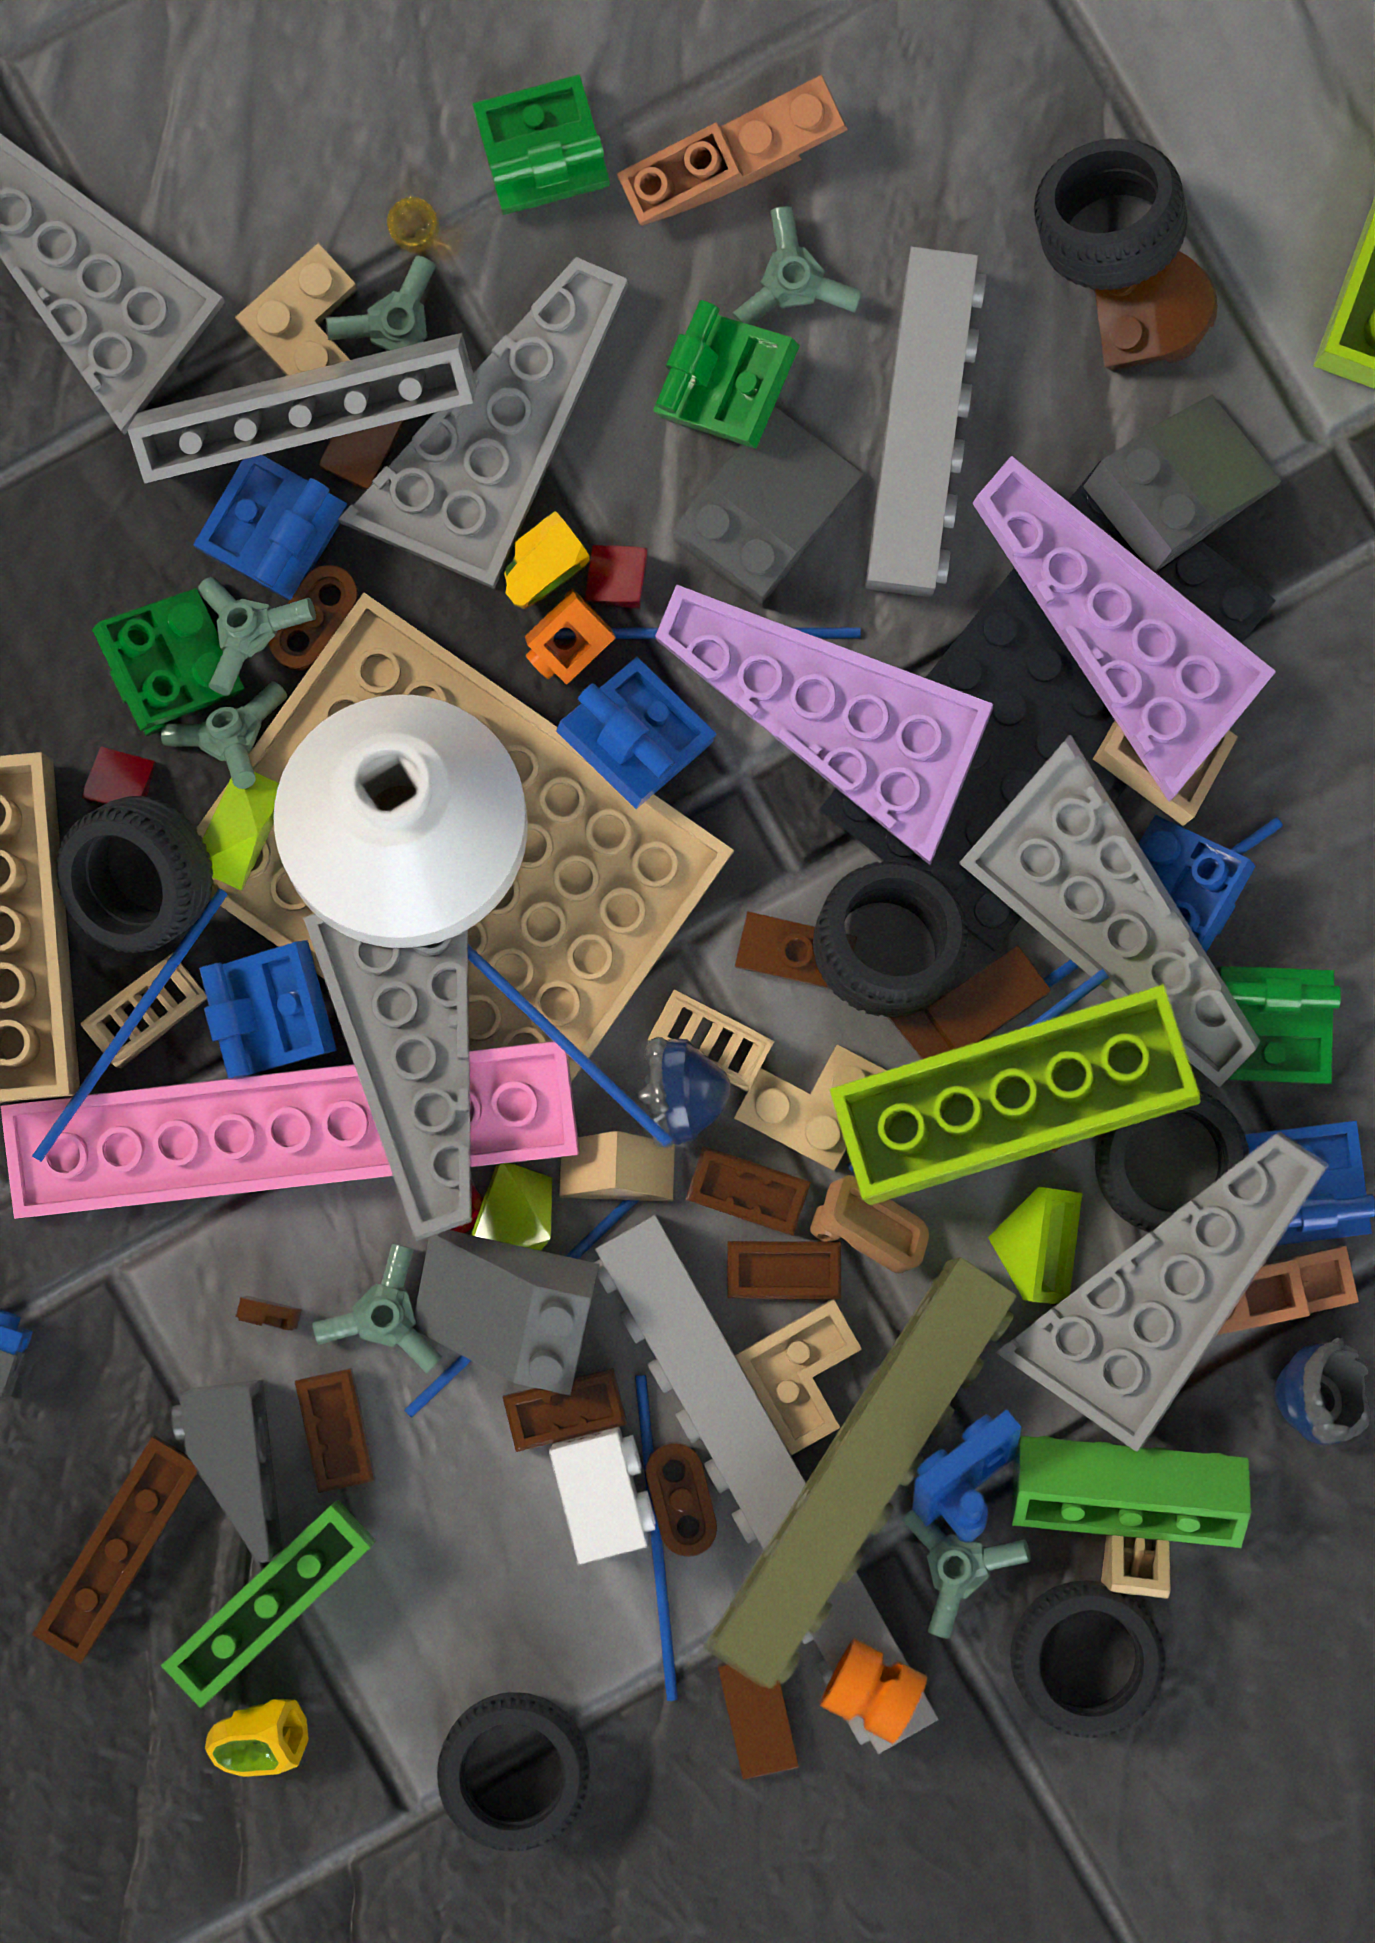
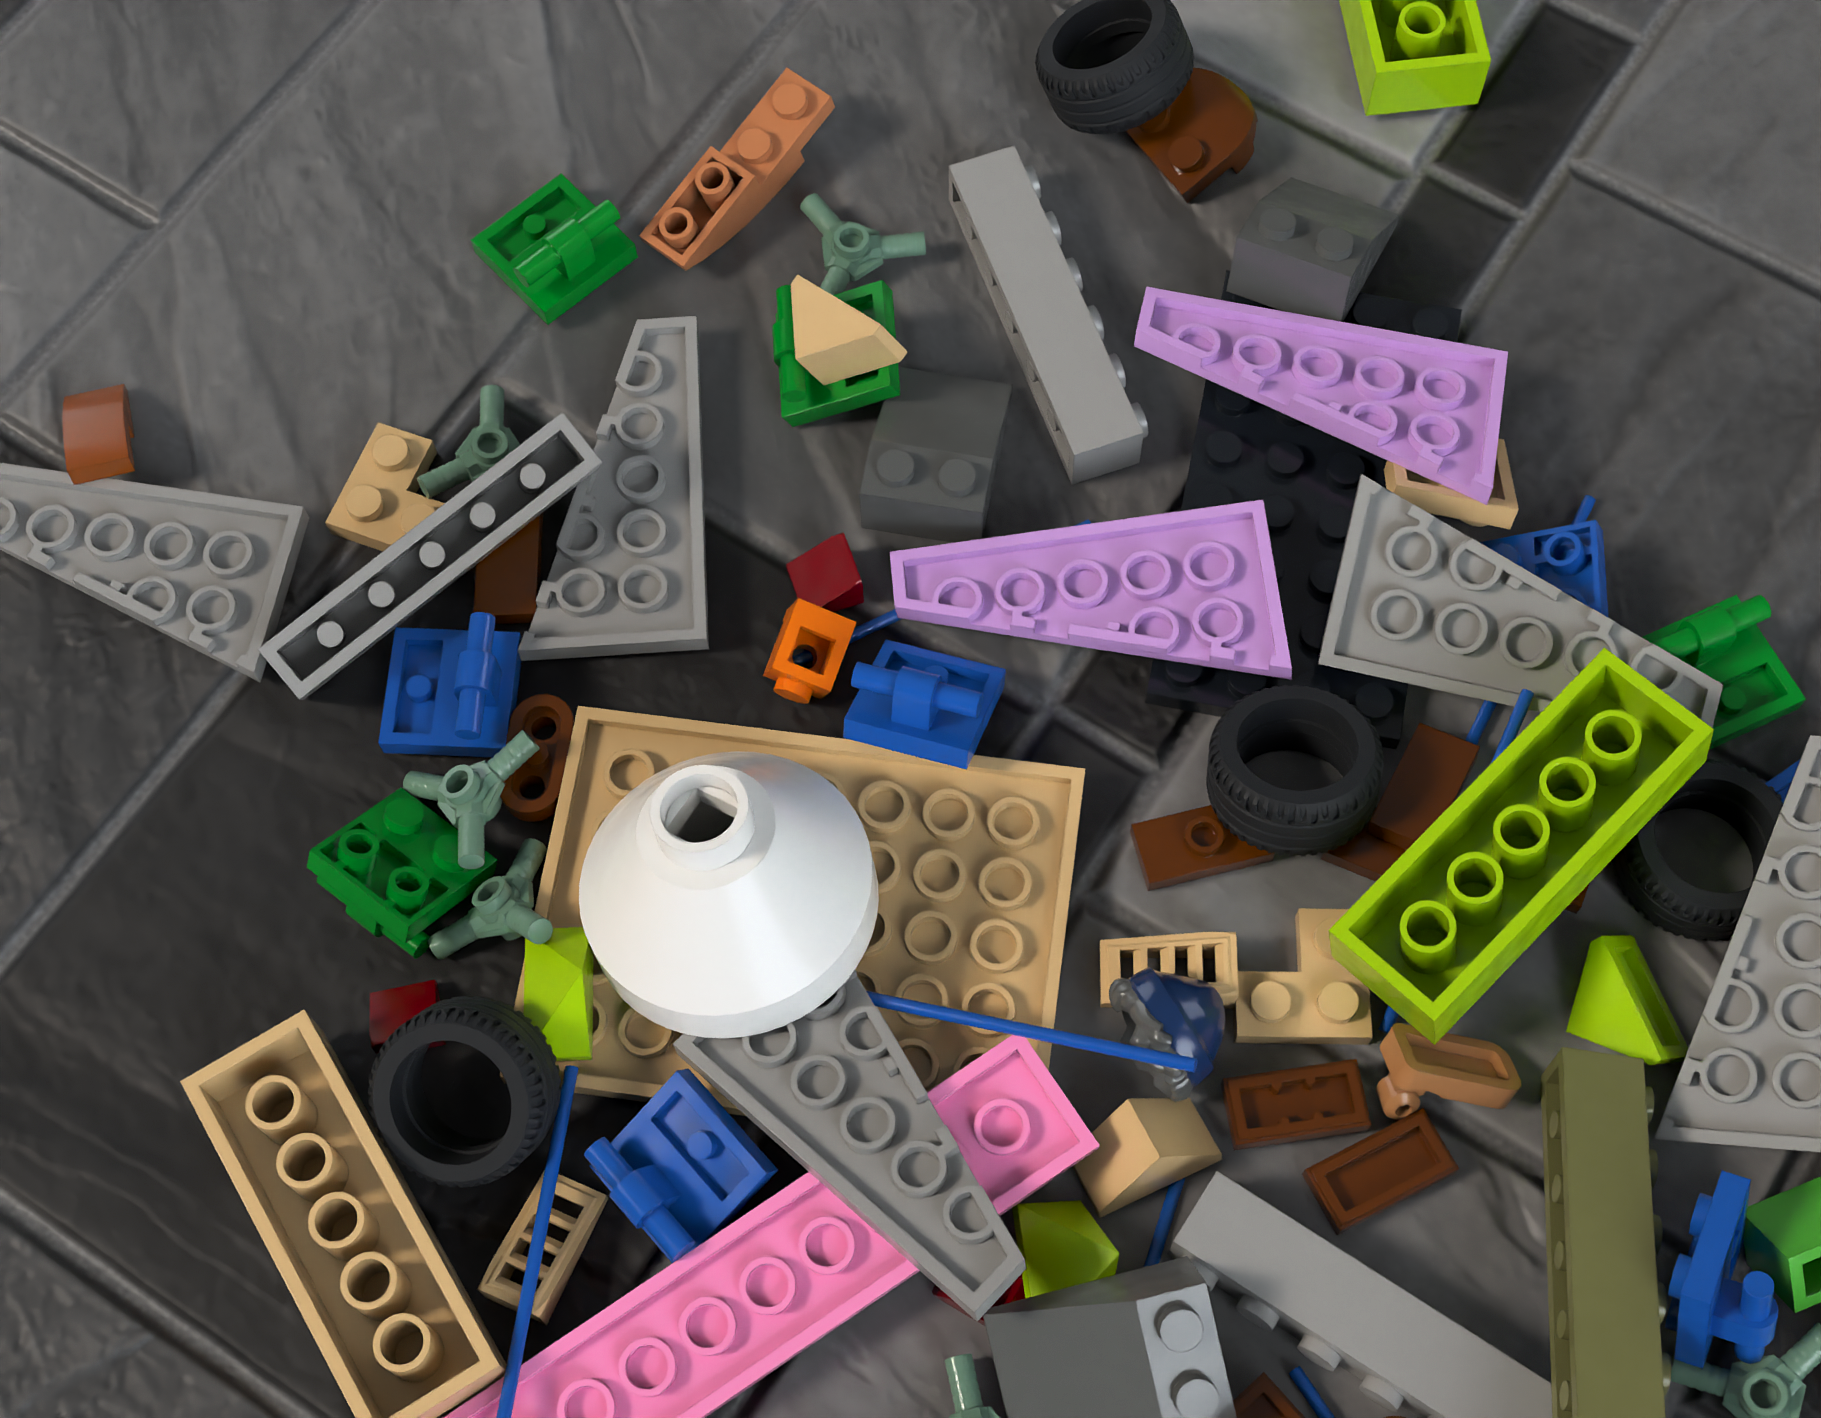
camera: 25 degrees left, 20 degrees down
(82, 135) = (98, 434): none -> dark orange slope
(423, 237) = (447, 369): clear yellow bush -> none
(543, 561) = (748, 593): yellow rock -> none
(723, 373) = (836, 338): none -> tan slope
(784, 1369) = (1448, 1271): tan plate -> none

